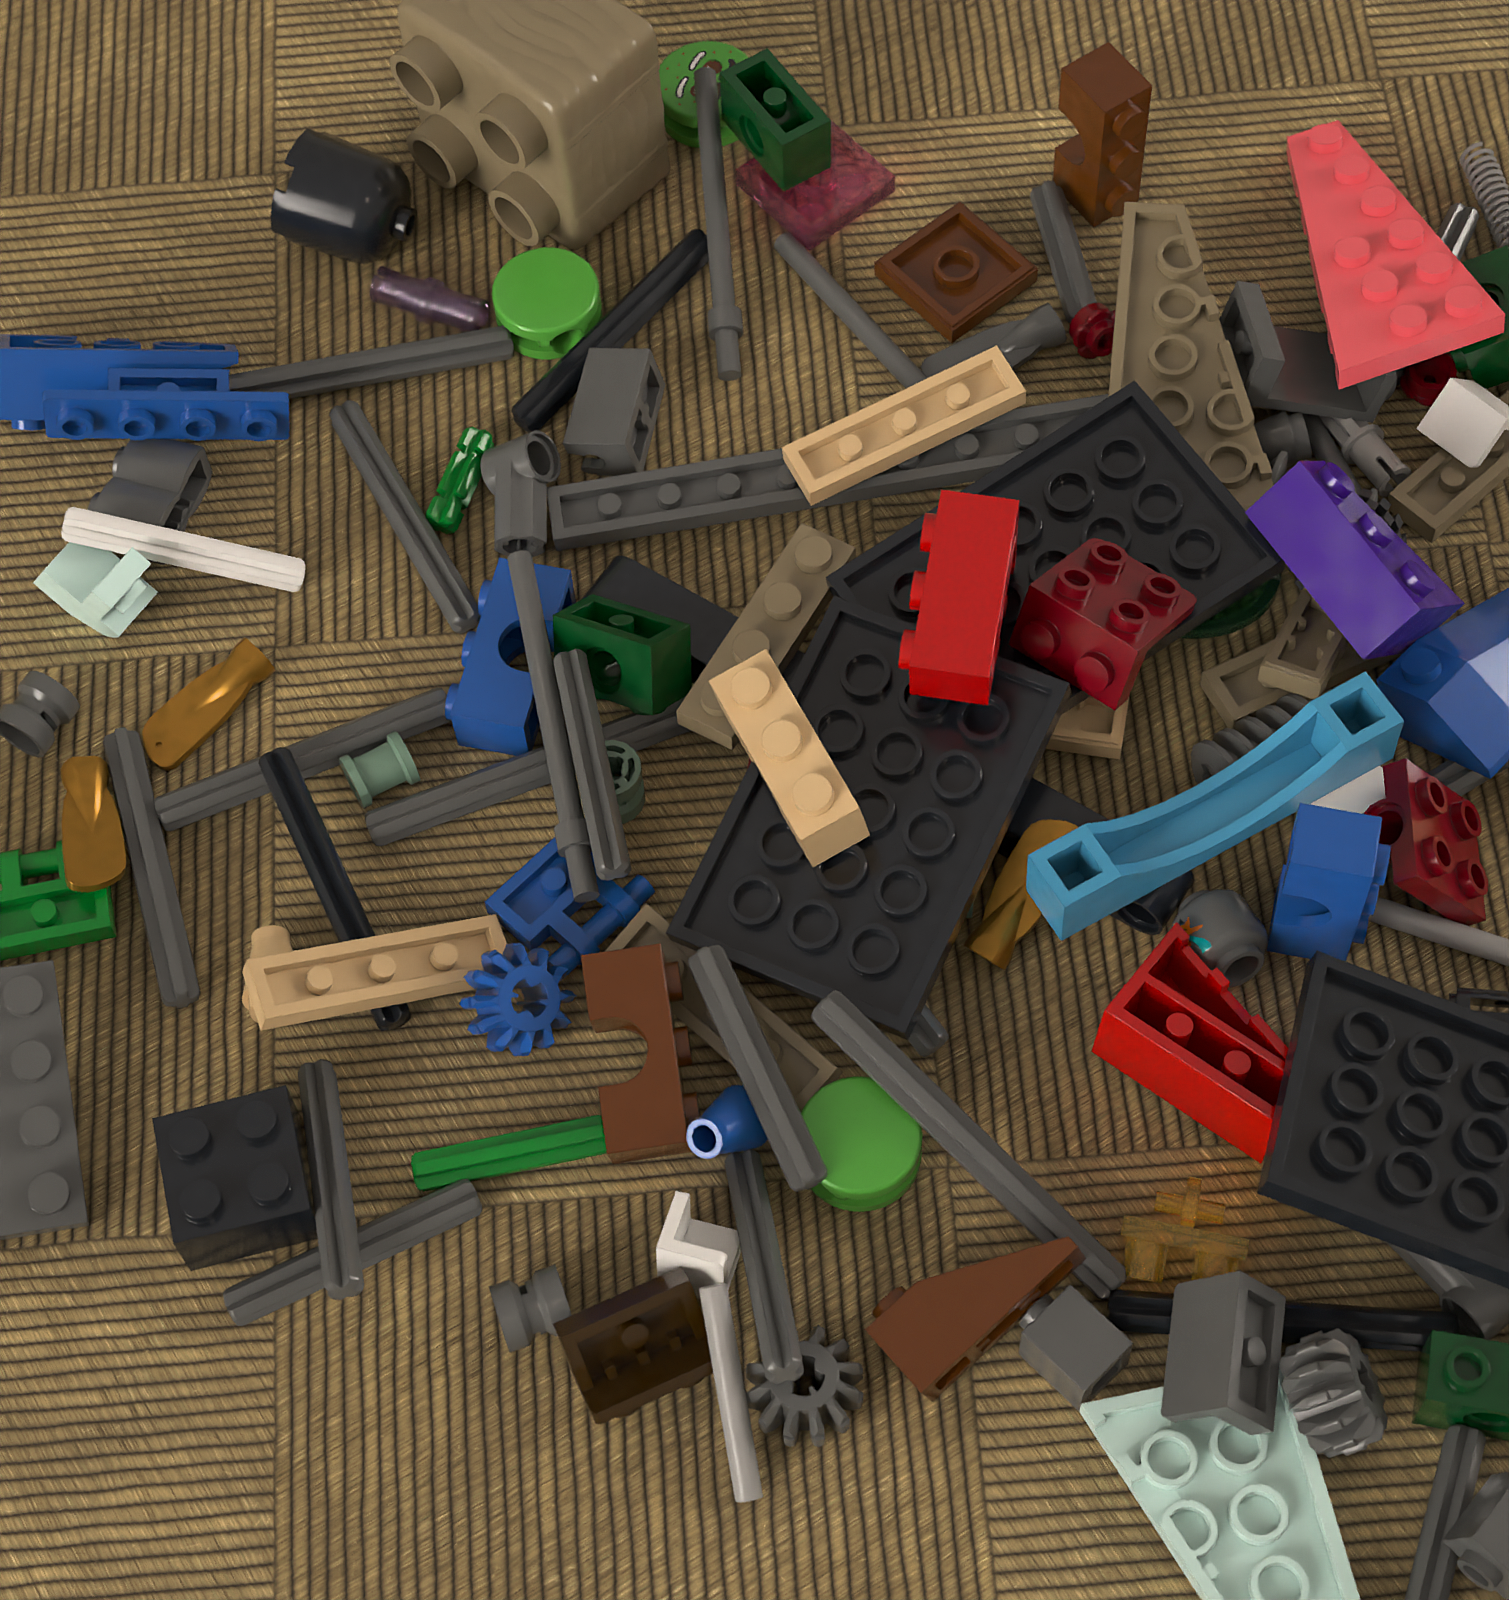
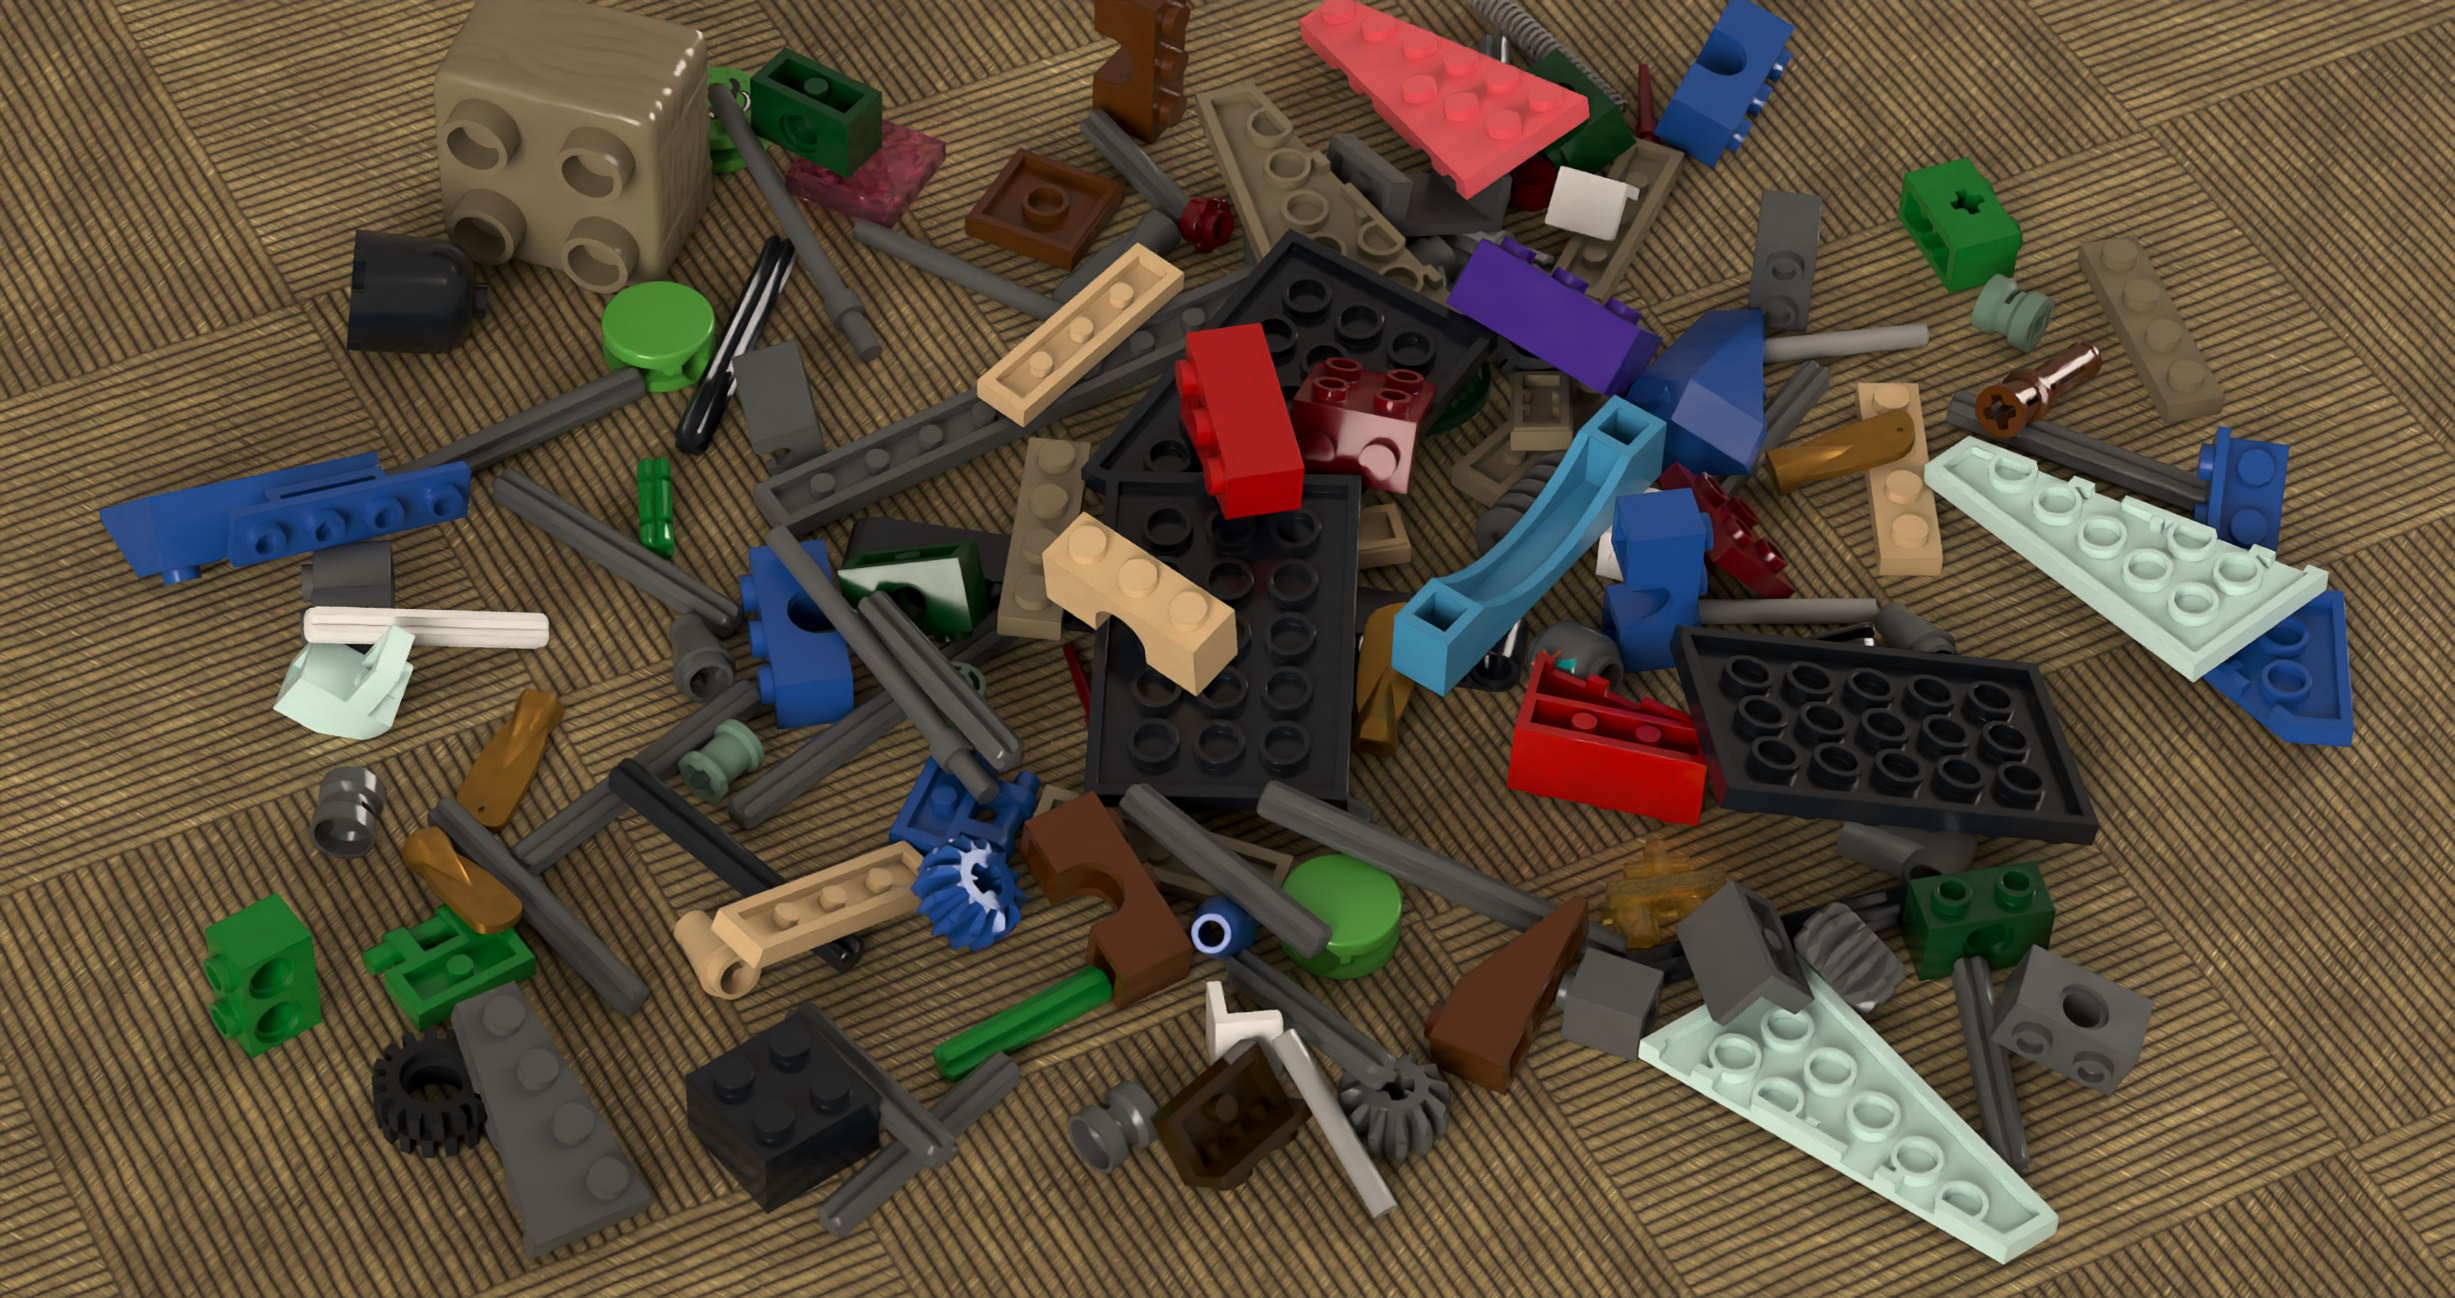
camera: 30 degrees left, 15 degrees down
(414, 655) = (699, 660): none -> dark grey cone
(429, 300) = (534, 366): pin -> none
(519, 478) = (723, 488): dark grey piece -> none

